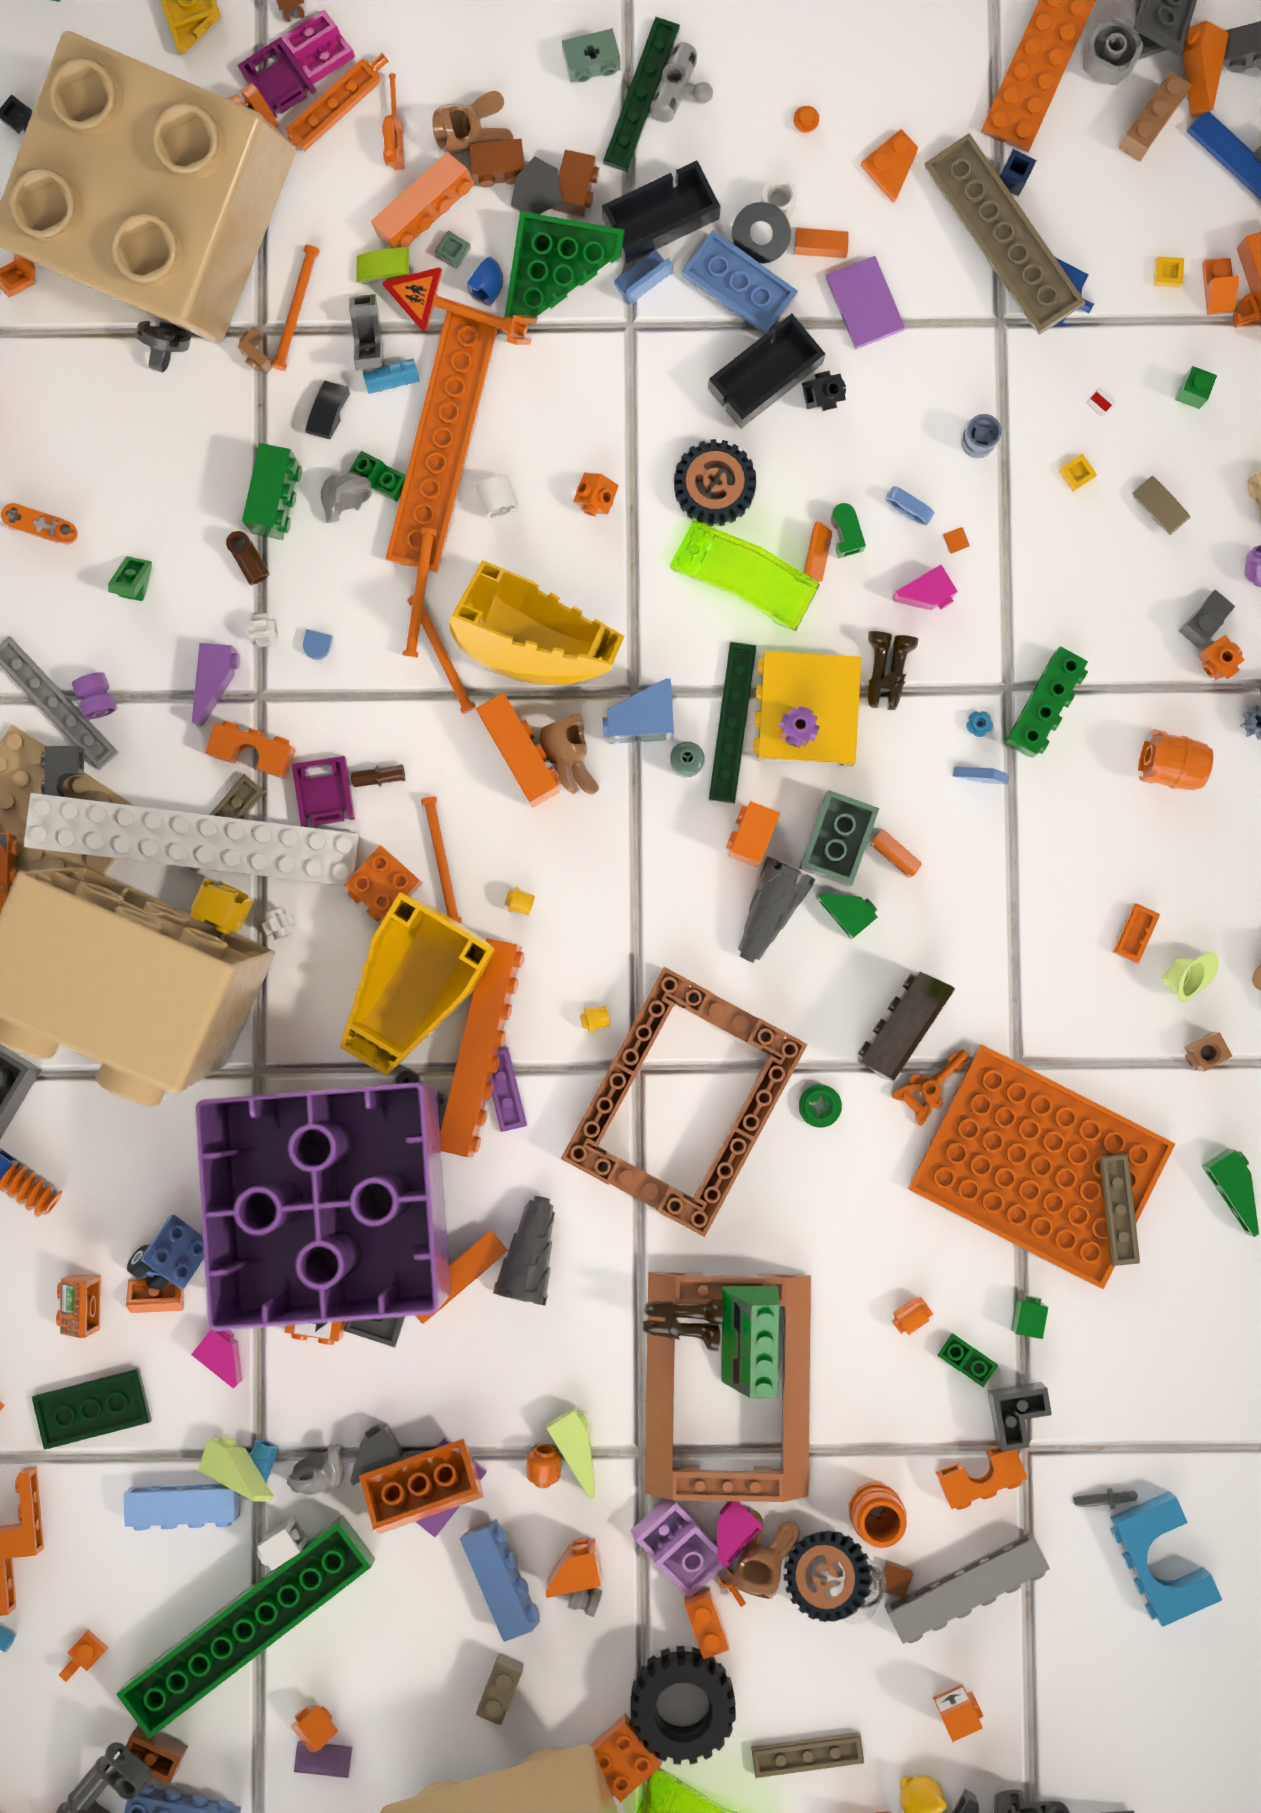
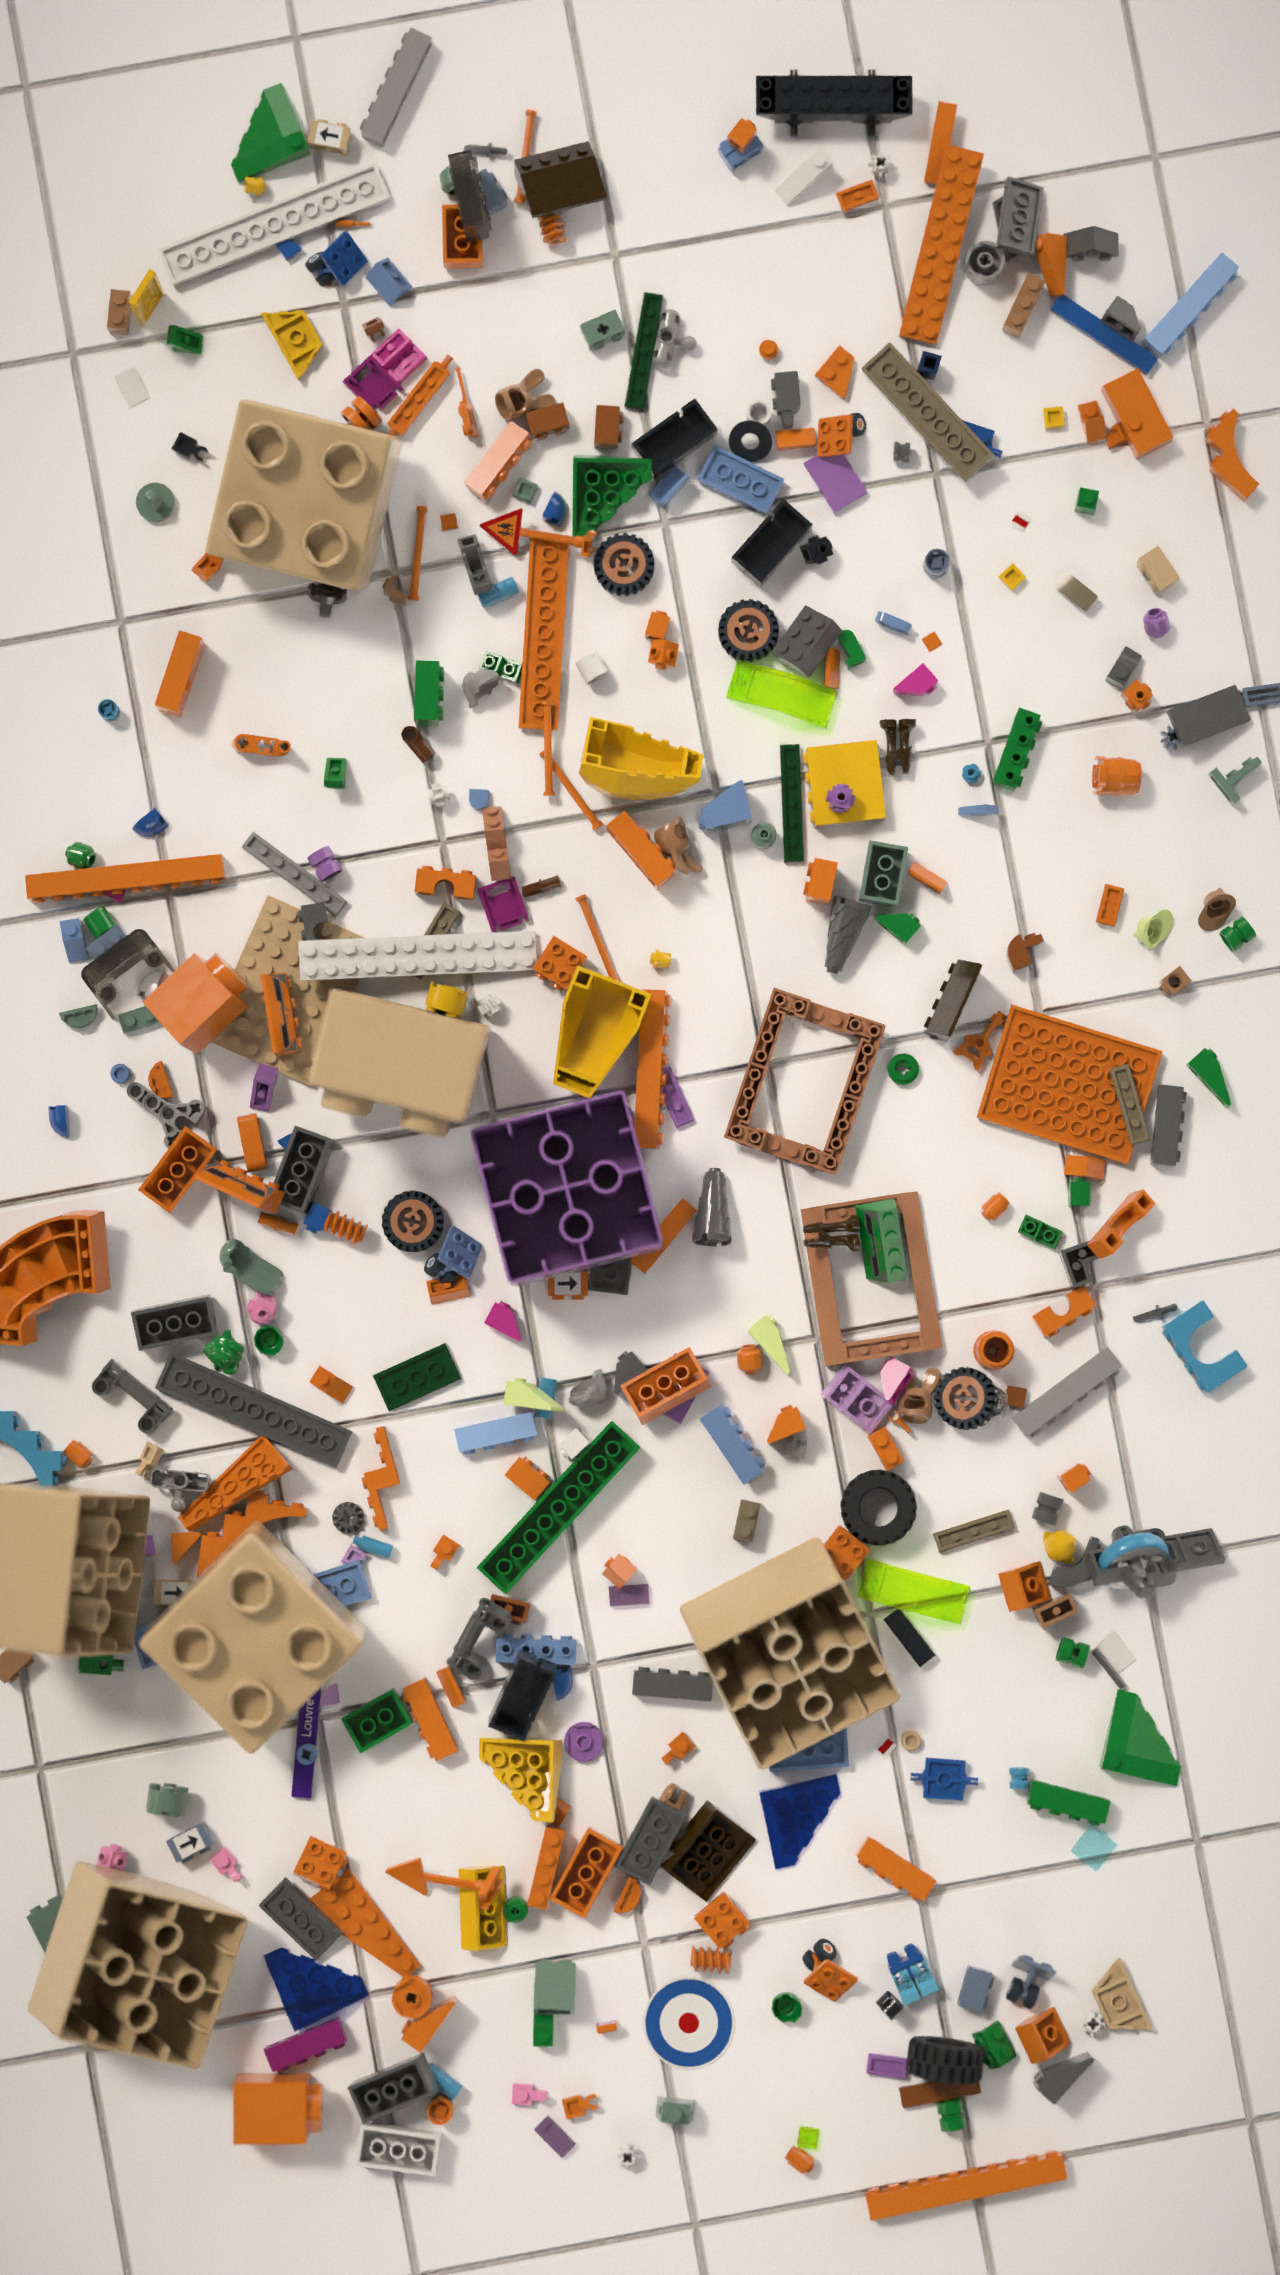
camera: 15 degrees left, 0 degrees up
(79, 1305) = (395, 1303): orange slope -> none
(112, 1221) = (408, 1241): none -> wheel
(213, 1575) = (527, 1477): none -> orange brick
(214, 673) = (408, 833): medium lavender slope -> none
(326, 408) = (455, 625): black slope -> none
(327, 708) = (496, 843): none -> nougat arch
(345, 274) = (448, 521): none -> orange sticker
(382, 263) = (477, 511): lime slope -> none
(536, 187) = (581, 436): dark grey slope -> none
(576, 351) = (638, 551): none -> wheel
(594, 1018) = (729, 1034): yellow hose -> none
(595, 455) = (657, 625): none -> orange brick
(790, 509) = (807, 641): none -> dark grey brick
(820, 183) = (787, 396): none -> dark grey hinge
(879, 240) = (837, 432): none -> orange plate
(912, 1748) = (1047, 1508): none -> dark grey wheel
(959, 281) = (901, 451): none -> dark grey wheel
(1000, 973) = (1017, 950): none -> dark orange brick
(1042, 1282) = (1084, 1167): none -> orange slope
(1099, 1354) = (1131, 1210): none -> orange arch
(1165, 1246) = (1167, 1125): none -> dark grey brick

